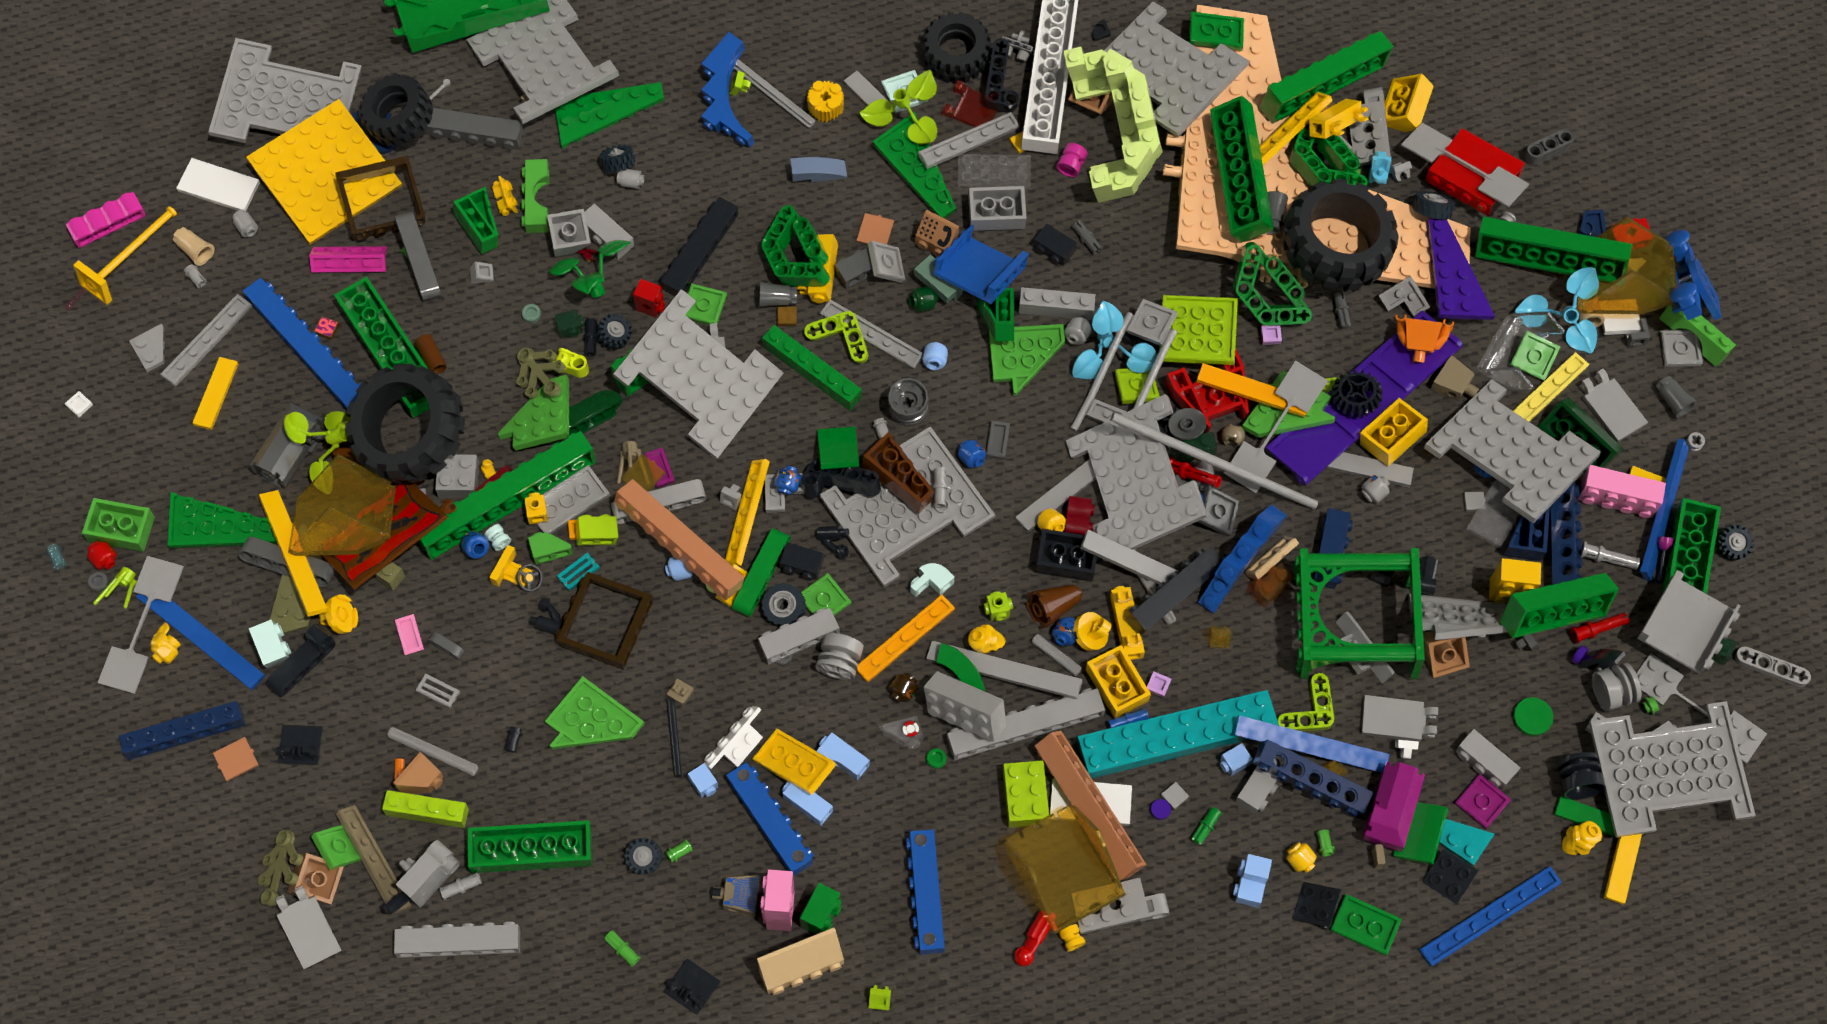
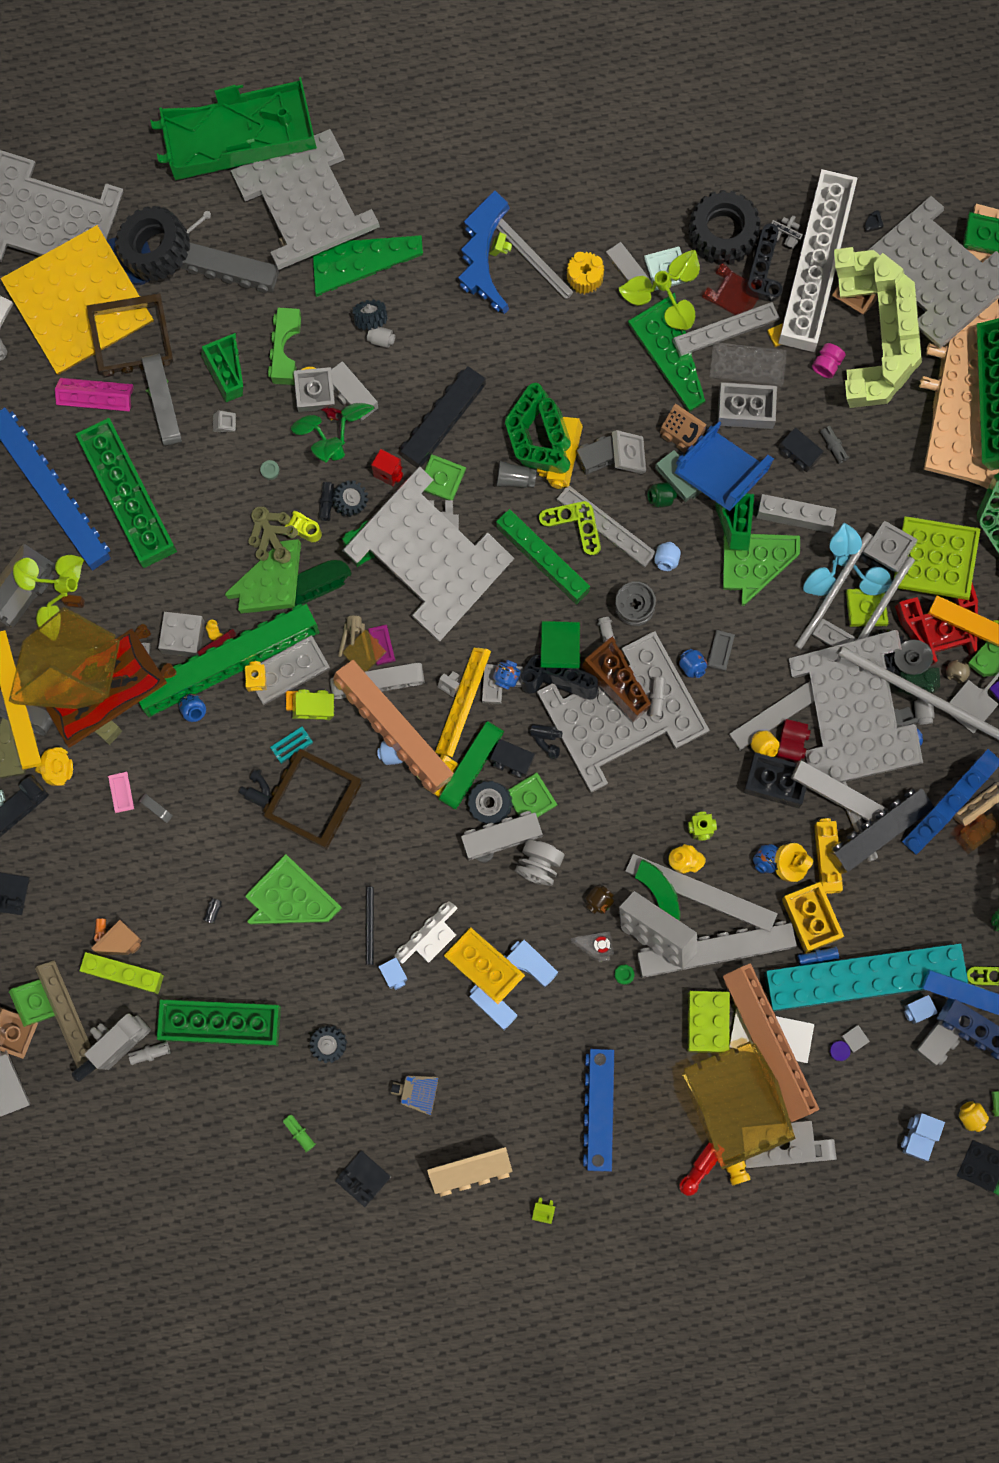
camera: 10 degrees right, 10 degrees up
(326, 327) = (66, 464): tile -> none
(374, 402) = (96, 573): black tyre -> none
(430, 353) = (166, 504): reddish brown pin -> none
(432, 751) = (133, 913): light grey axle -> none
(456, 692) = (157, 861): light grey tile -> none
(457, 940) = (141, 1108): light grey brick -> none
(497, 537) = (215, 701): light aqua wheel -> none
(502, 189) = (253, 335): yellow hinge -> none
(514, 572) = (229, 739): yellow piece -> none
(548, 547) = (263, 717): bright green slope -> none
(569, 323) = (306, 485): clear green brick -> none
(678, 851) = (363, 1041): bright green pin -> none
(680, 692) = (379, 879): dark tan tile -> none
(769, 818) = (454, 1019): blue piece -> none
(778, 900) = (454, 1109): bright pink brick -> none
(787, 316) = (523, 498): pearl gold tile -> none
(817, 169) = (570, 345): sand blue slope -> none
(821, 909) = (495, 1119): green brick -> none
(875, 229) = (621, 415): nougat piece -> none
(905, 638) = (606, 847): light orange tile -> none
(934, 575) = (642, 787): light aqua brick -> none
(1052, 603) = (756, 829): reddish brown cone -> none
(1056, 655) = (754, 881): light grey axle -> none
(1078, 330) = (813, 544): light grey head -> none
(1158, 684) = (852, 923): lavender plate -> none
(1185, 471) = (906, 705): red pin -> none
(1206, 825) = (883, 1073): green axle -> none
(1220, 511) = (935, 749): dark grey tile -> none
(1220, 637) = (920, 881): clear yellow tile -> none

